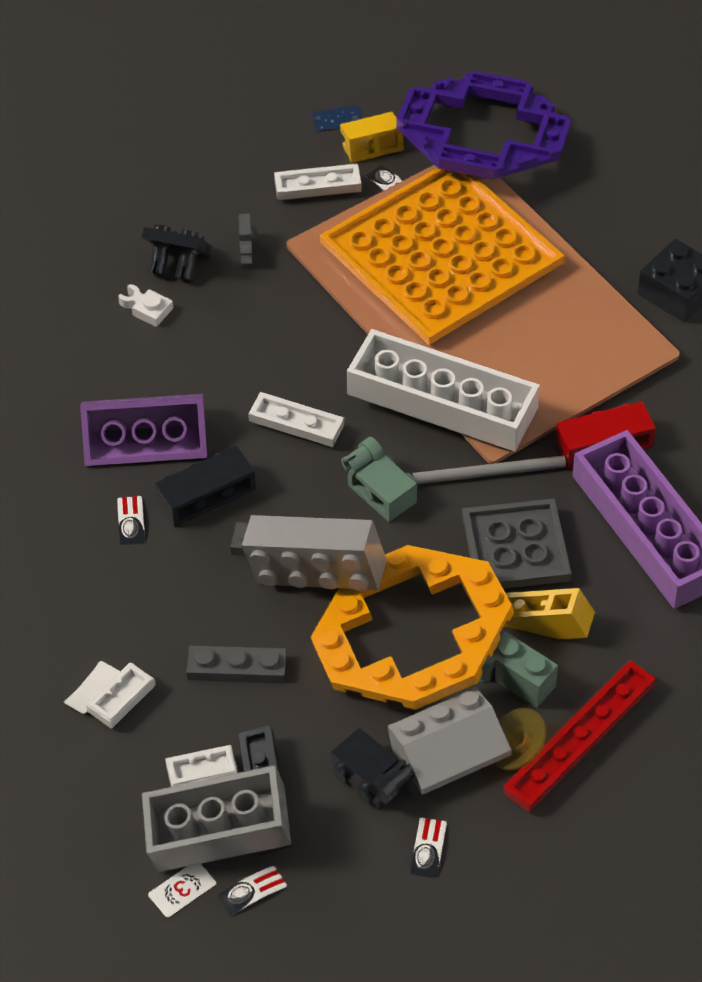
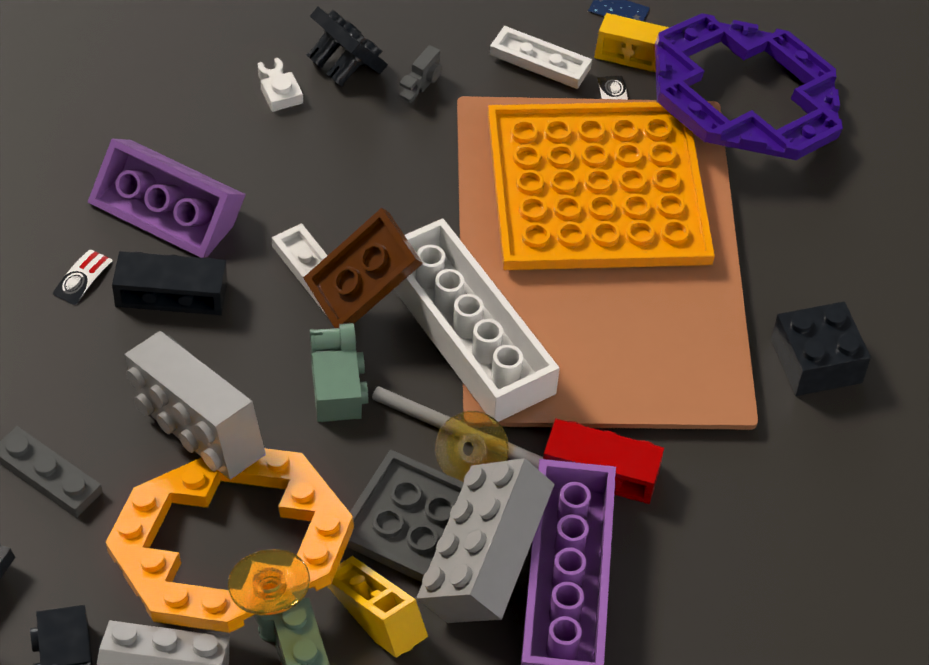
camera: 30 degrees right, 0 degrees up
(348, 395) = (362, 269): none -> reddish brown plate
(485, 630) = (269, 582): none -> clear yellow dish
(523, 471) = (474, 427): none -> clear yellow dish
(587, 526) = (485, 541): none -> light grey brick

